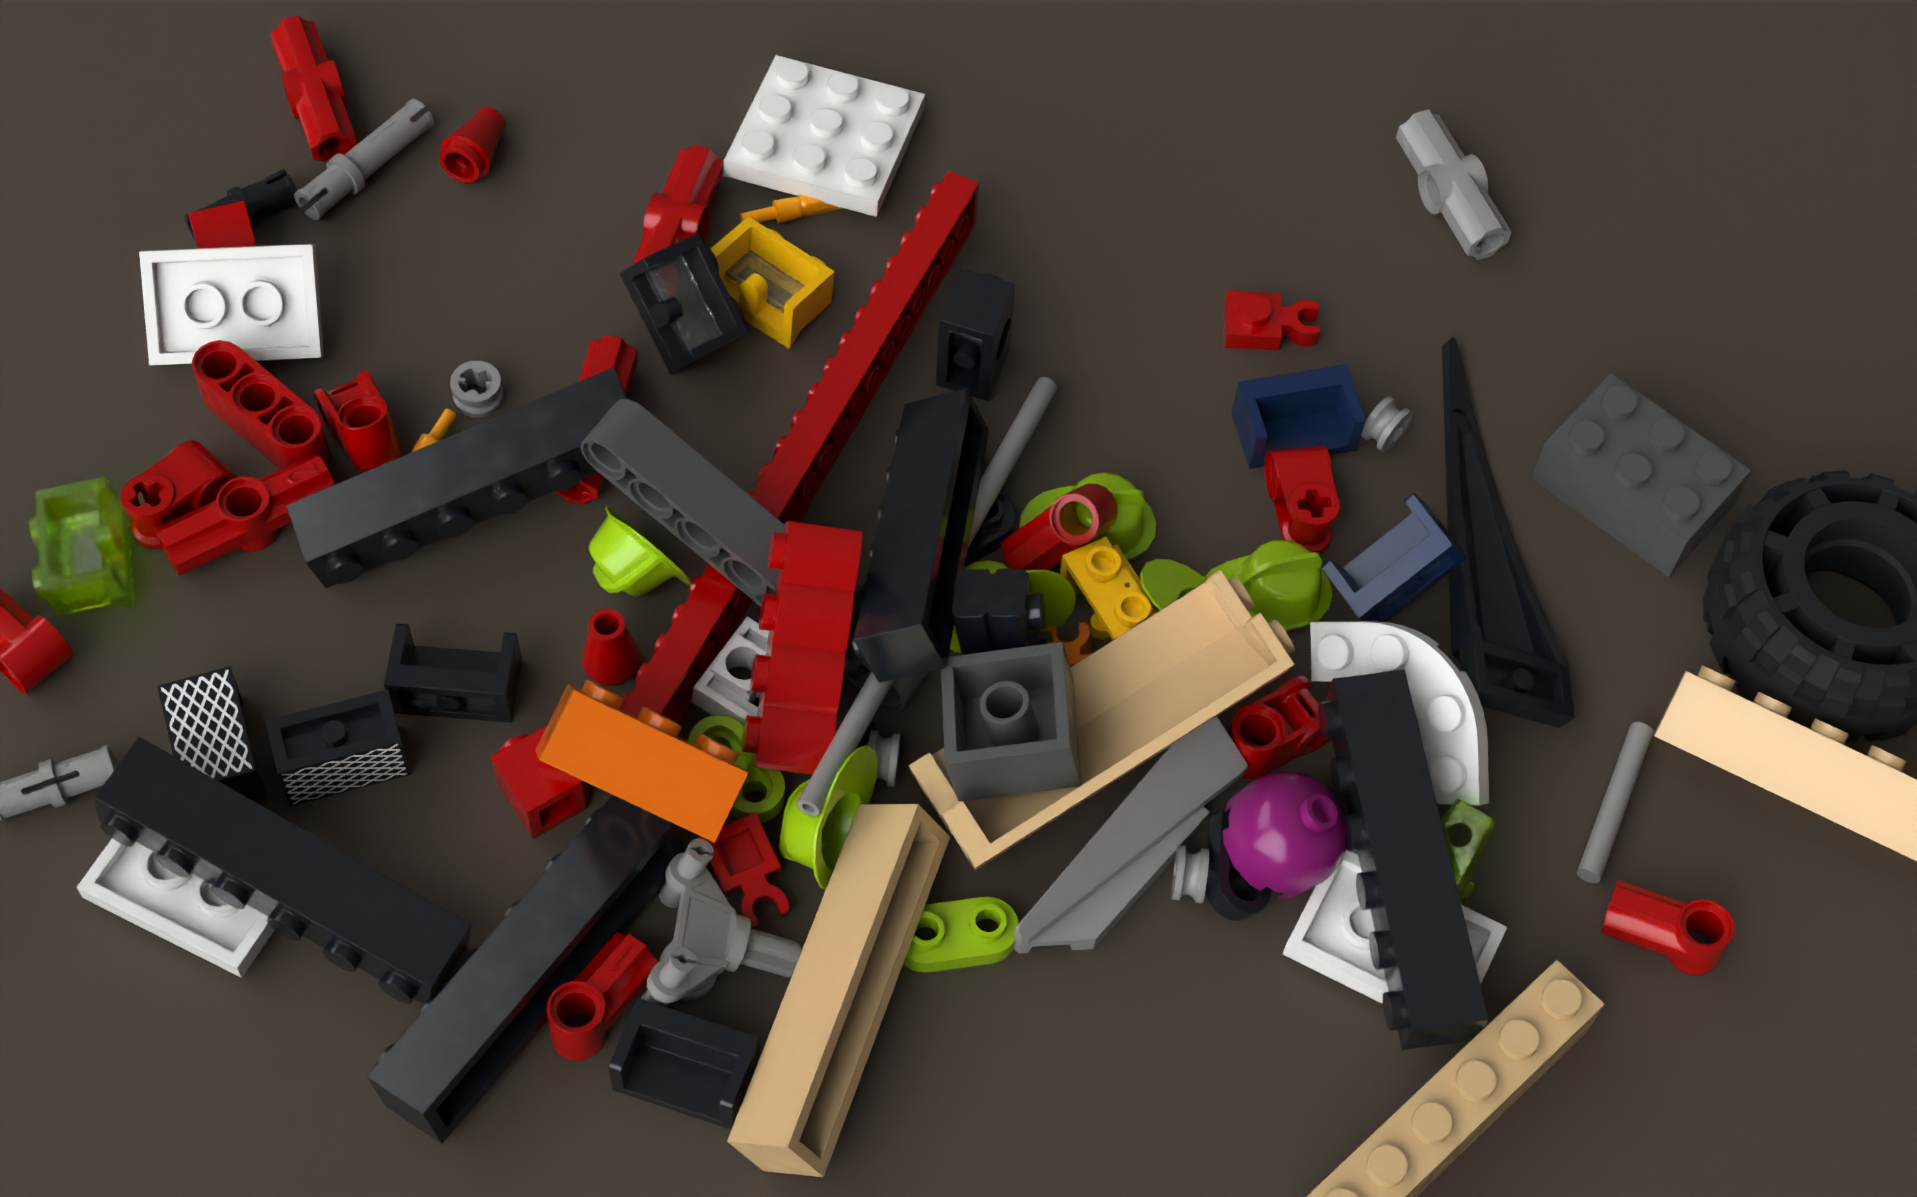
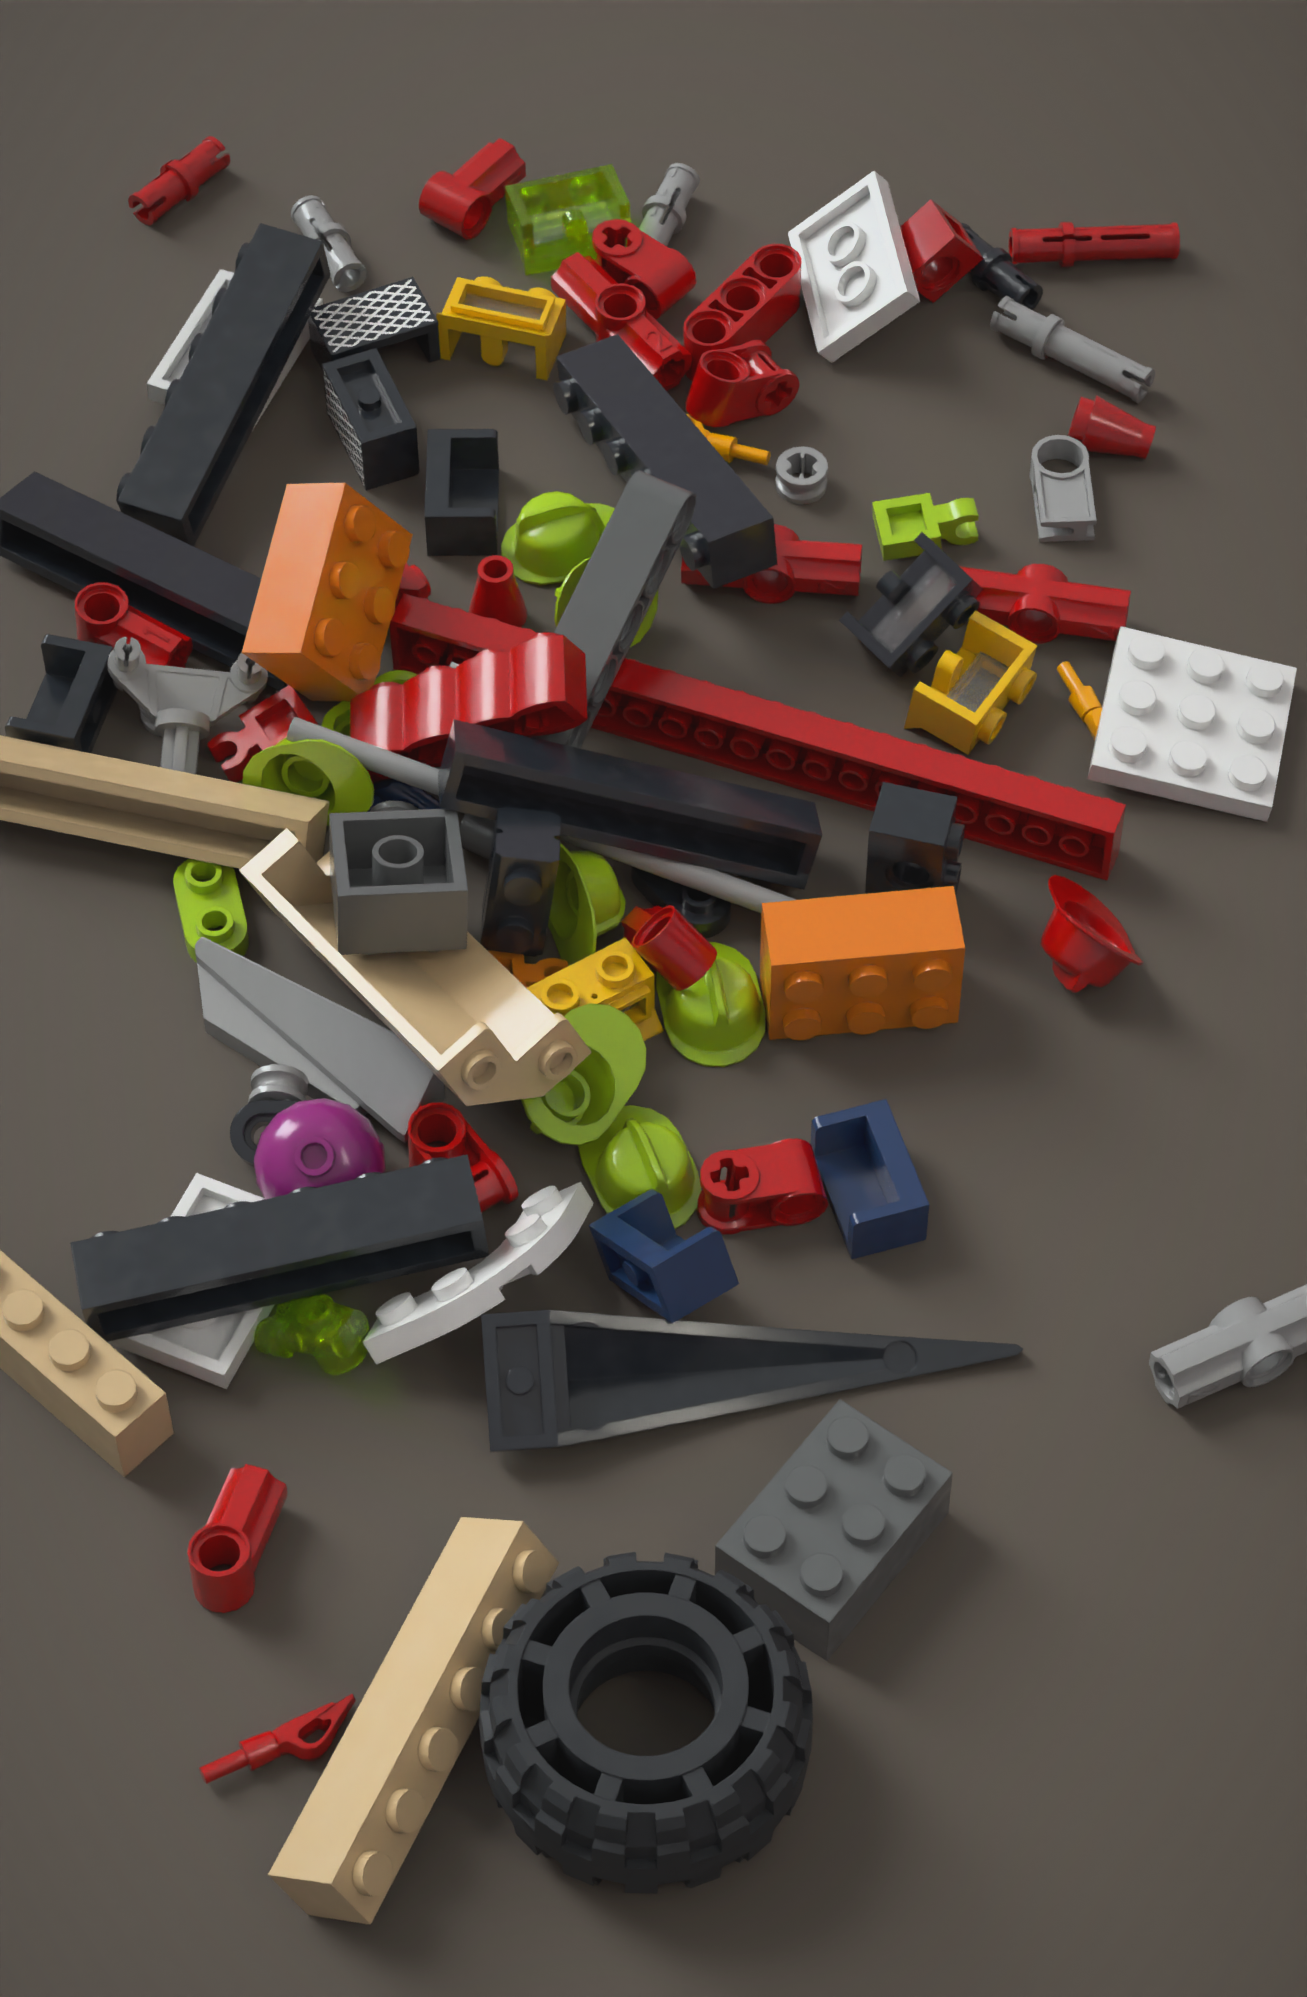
camera: 90 degrees right, 5 degrees down
(84, 460) = (674, 192): none -> light grey pin
(221, 616) = (503, 316): none -> yellow window
(223, 168) = (1093, 243): none -> red pin
(313, 88) = (1152, 295): red piece -> none
(523, 591) = (553, 536): none -> lime piece
(547, 194) = (1062, 500): none -> light grey piece
(565, 303) = (904, 518): none -> lime plate
(1064, 238) = (1084, 938): none -> red piece
(1098, 381) = (861, 963): none -> orange brick
(1261, 322) = (1014, 1153): red plate -> none
(1386, 424) = (873, 1270): light grey bush -> none
(1615, 802) = (380, 1499): light grey bar -> none
(1845, 900) = (283, 1740): none -> red hand

